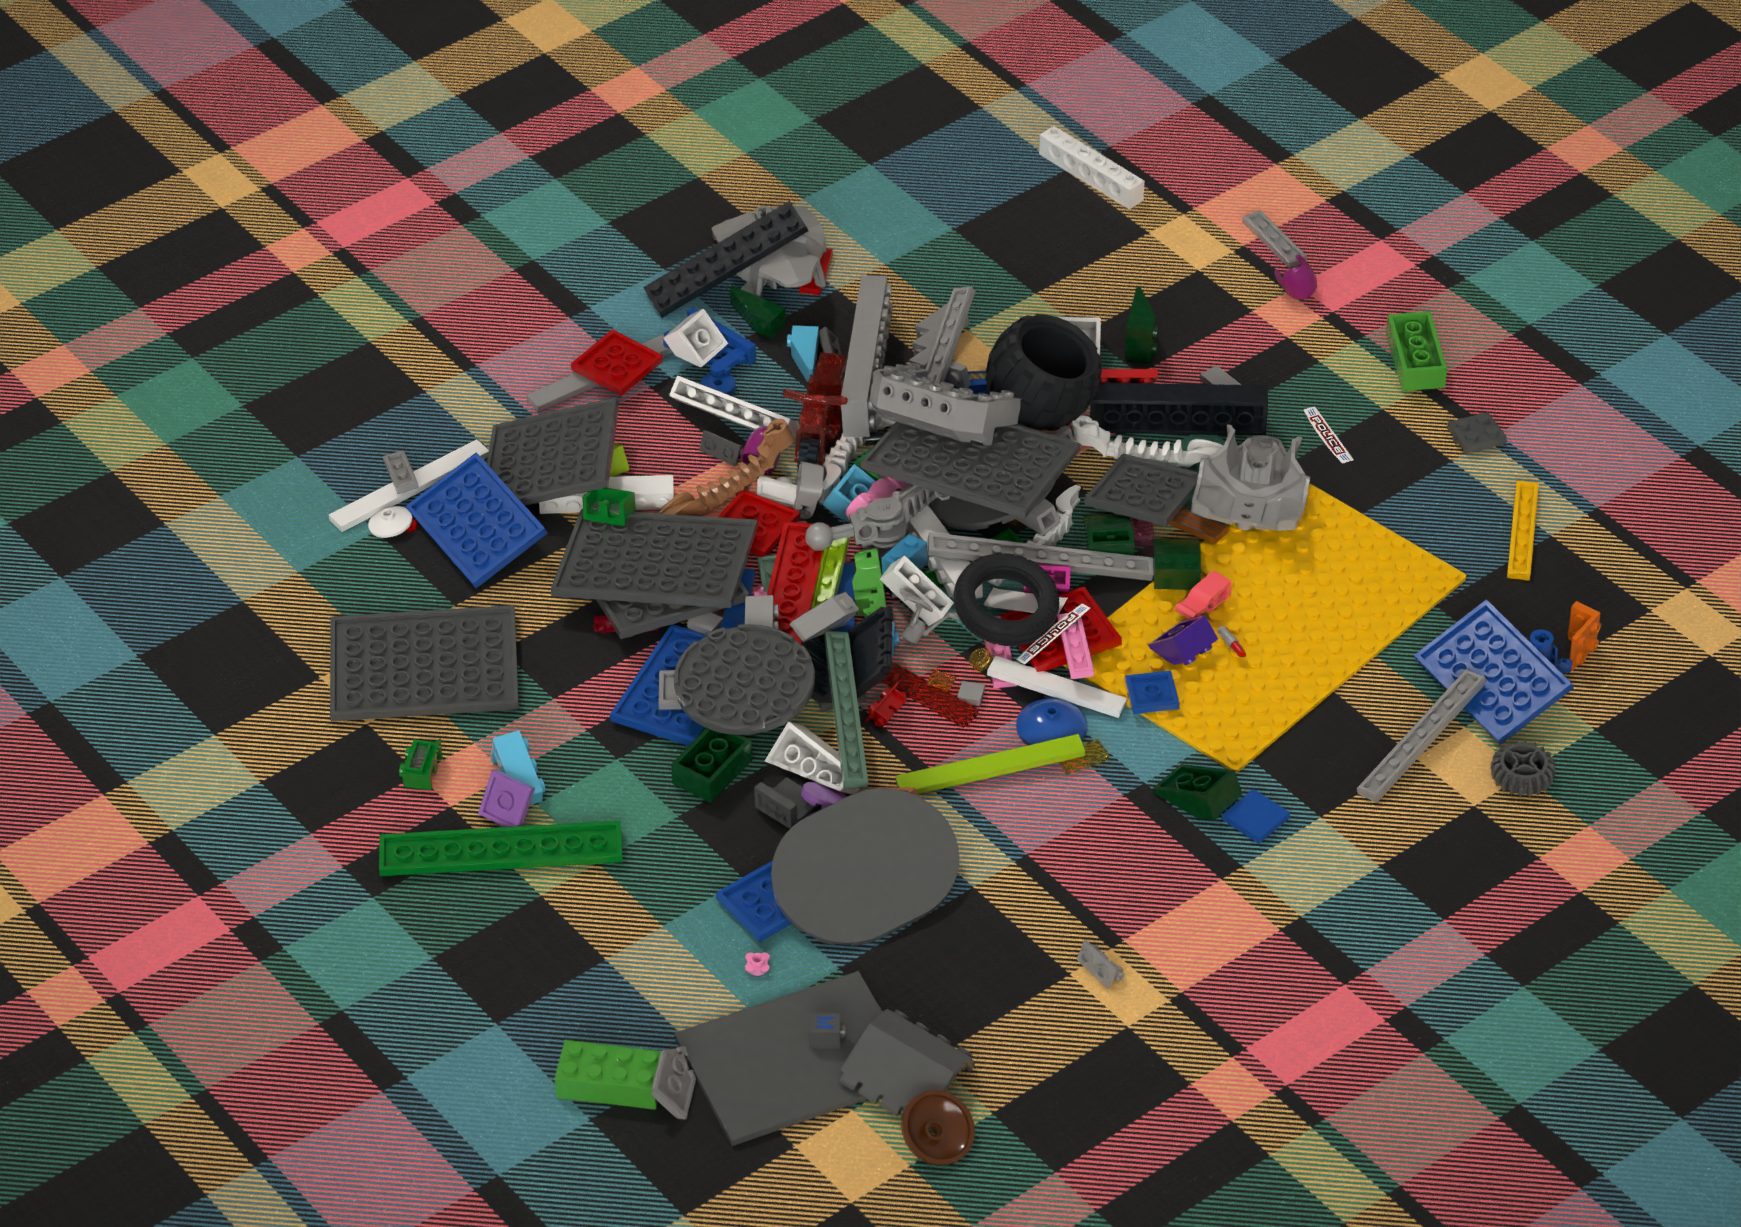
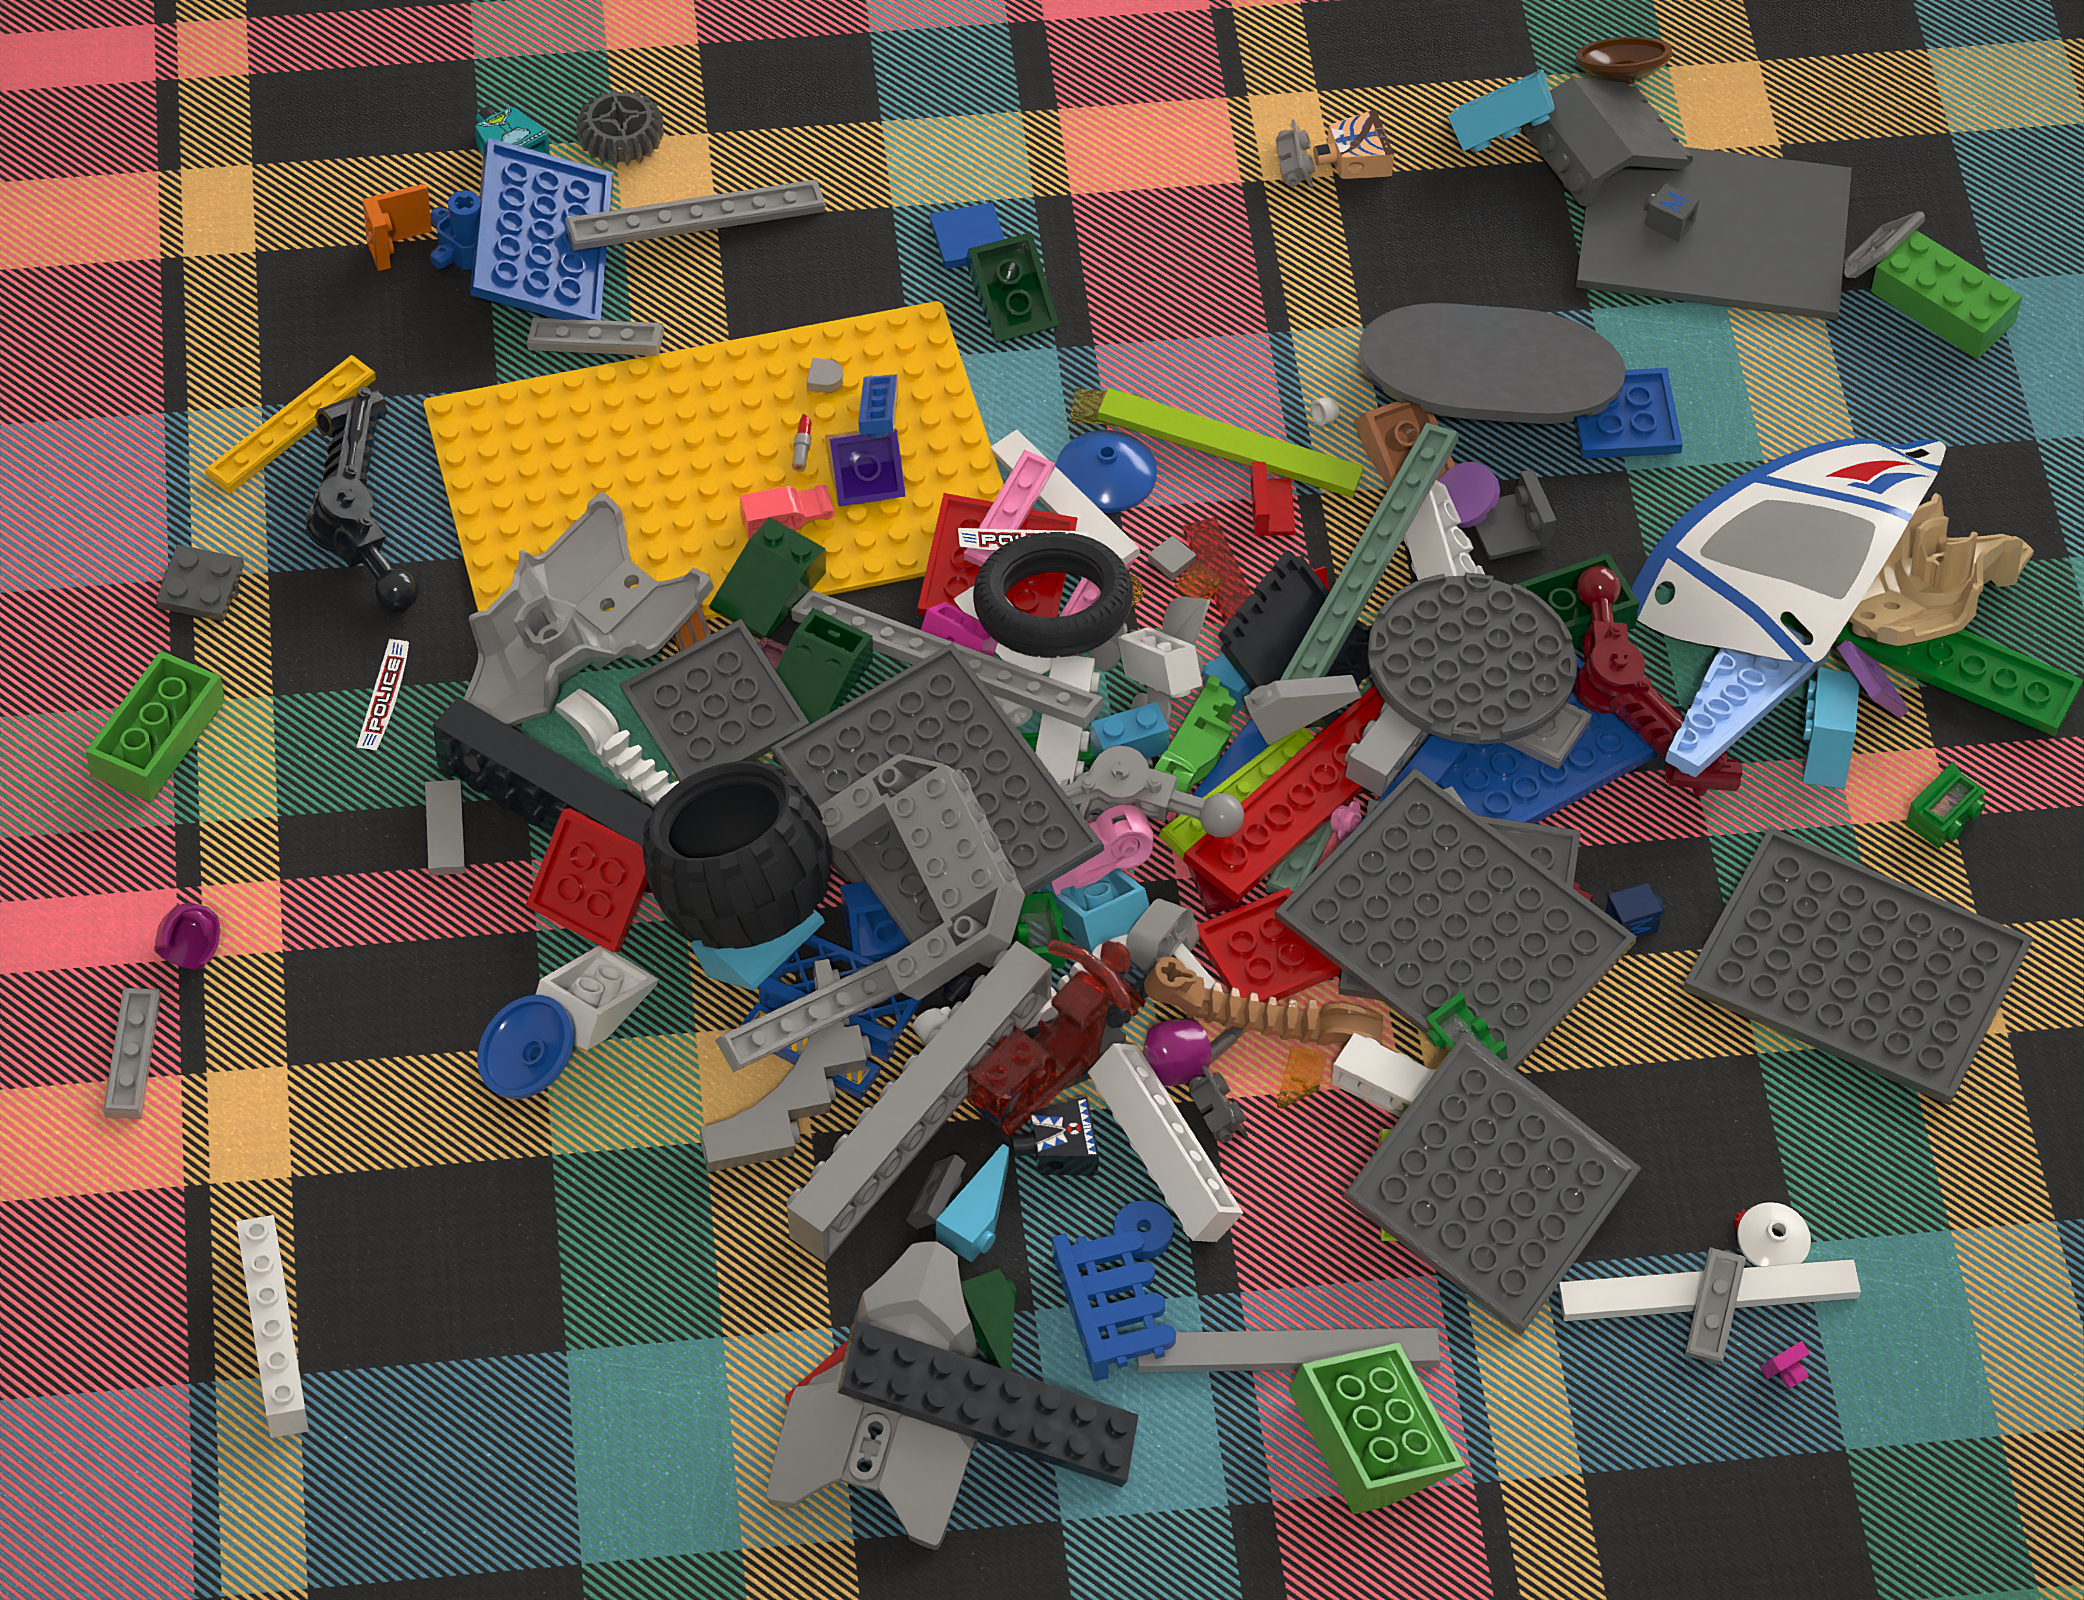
camera: 150 degrees left, 10 degrees up
(348, 465) = (1787, 1365): none -> dark pink tile
(476, 520) = (1661, 1138): blue plate -> none
(498, 873) = (1935, 580): none -> tan piece
(537, 346) = (1374, 1426): none -> bright green slope
(566, 628) = (1636, 909): none -> dark blue brick
(578, 766) = (1731, 701): none -> light blue wing
(595, 856) = (1783, 539): none -> piece
(616, 362) = (1273, 1326): red plate -> none
(649, 704) = (1616, 684): none -> dark red piece
(690, 480) = (1302, 1075): none -> clear yellow tile
(696, 339) = (1139, 1287): white slope -> none
(757, 963) = (1686, 349): bright pink plate -> none
(773, 398) = (1061, 1140): none -> black torso
(940, 745) = (1271, 503): none -> red panel
(951, 813) = (1324, 410): none -> white hinge
(988, 1039) = (1502, 112): none -> medium azure slope
(1063, 985) = (1357, 148): none -> light nougat torso
(1082, 305) = (525, 1047): none -> blue dish
(1141, 330) = (489, 960): dark green slope -> none
(1151, 692) = (957, 431): blue tile -> none
(1199, 654) = (878, 405): none -> blue plate
(1256, 683) = (824, 375): none -> light grey tile
(1399, 650) = (595, 336): none -> light grey tile
(1436, 480) = (342, 504): none -> black piece
(1578, 728) = (510, 127): none -> teal torso

